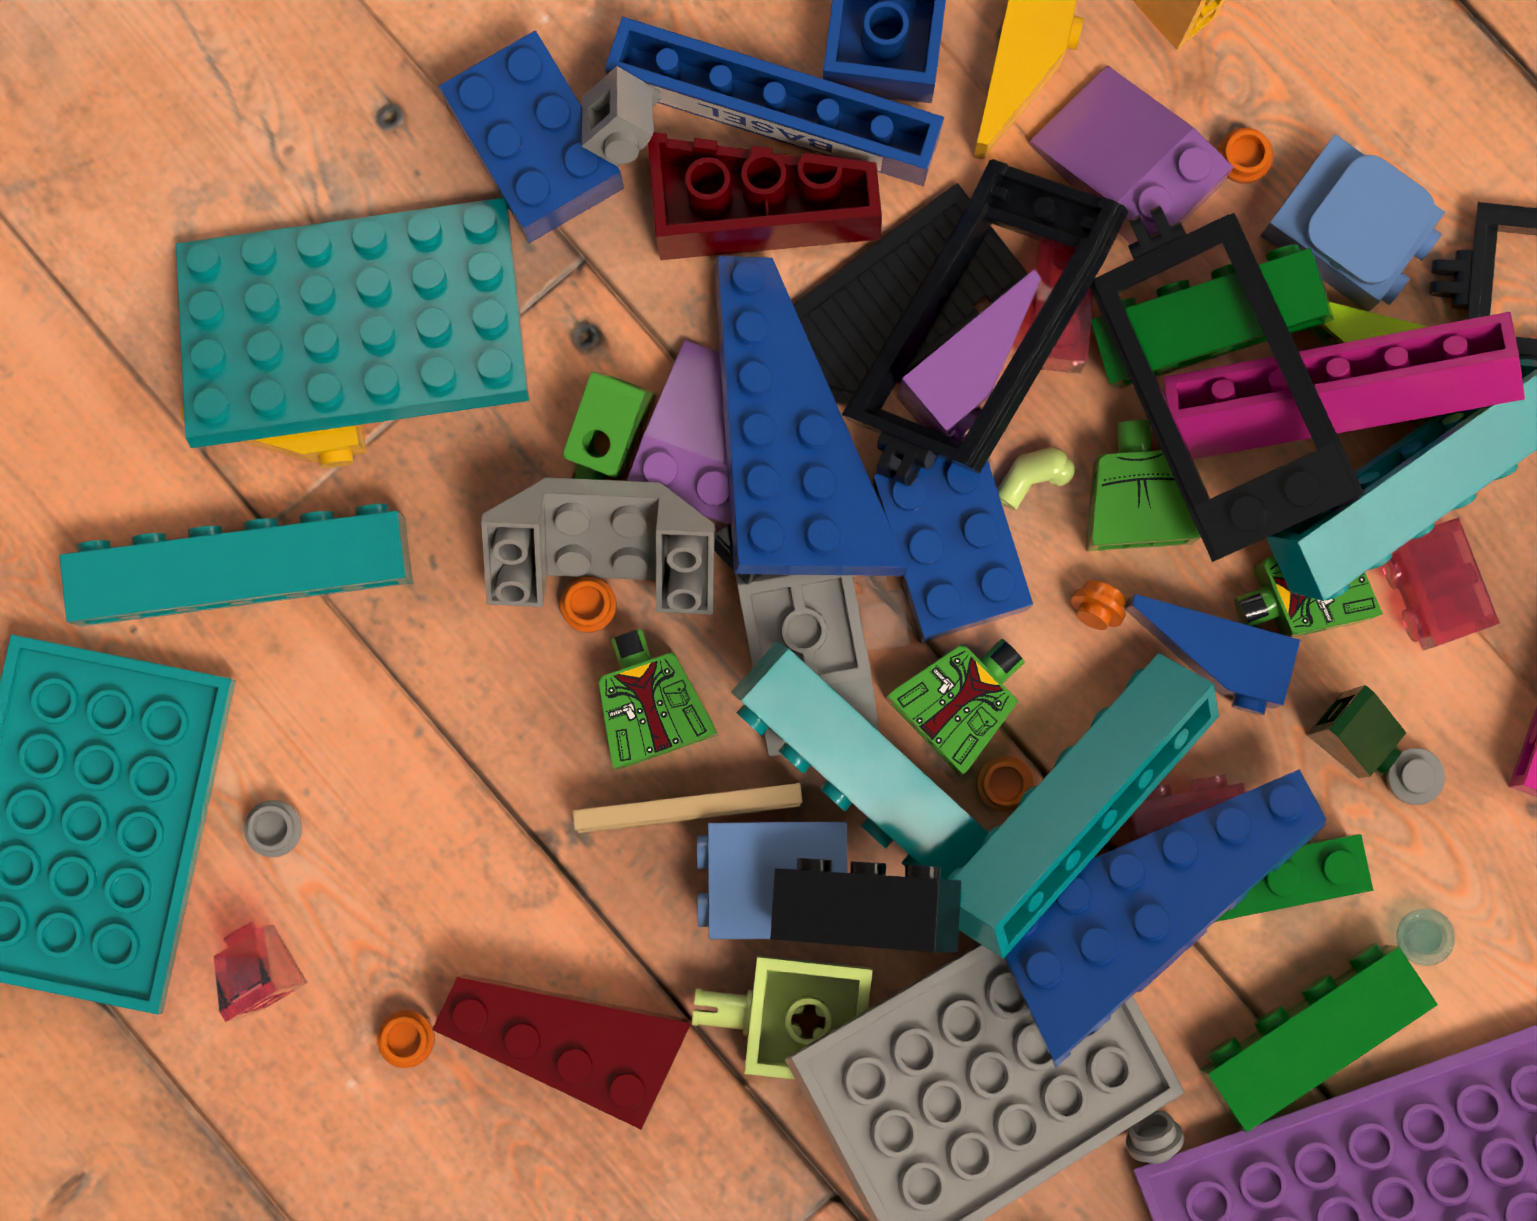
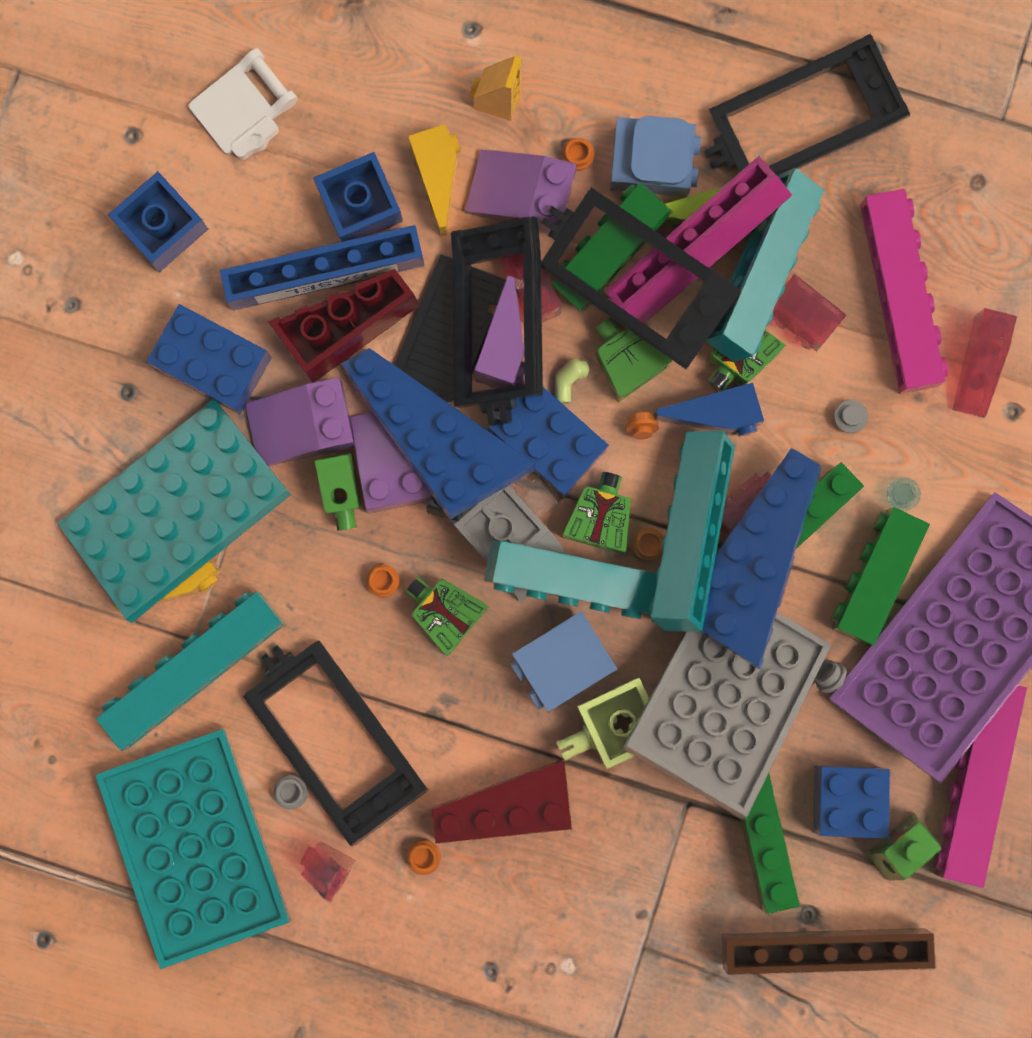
camera: 35 degrees left, 0 degrees up
(391, 921) = (378, 803): none -> black animal
(599, 533) = (368, 540): light grey slope -> none
(609, 307) = (301, 422): none -> medium lavender slope
(625, 124) = (254, 326): light grey brick -> none
(687, 808) = (496, 653): tan tile -> none
(866, 906) = (618, 647): black brick -> none
(1359, 733) = (810, 411): dark green slope -> none

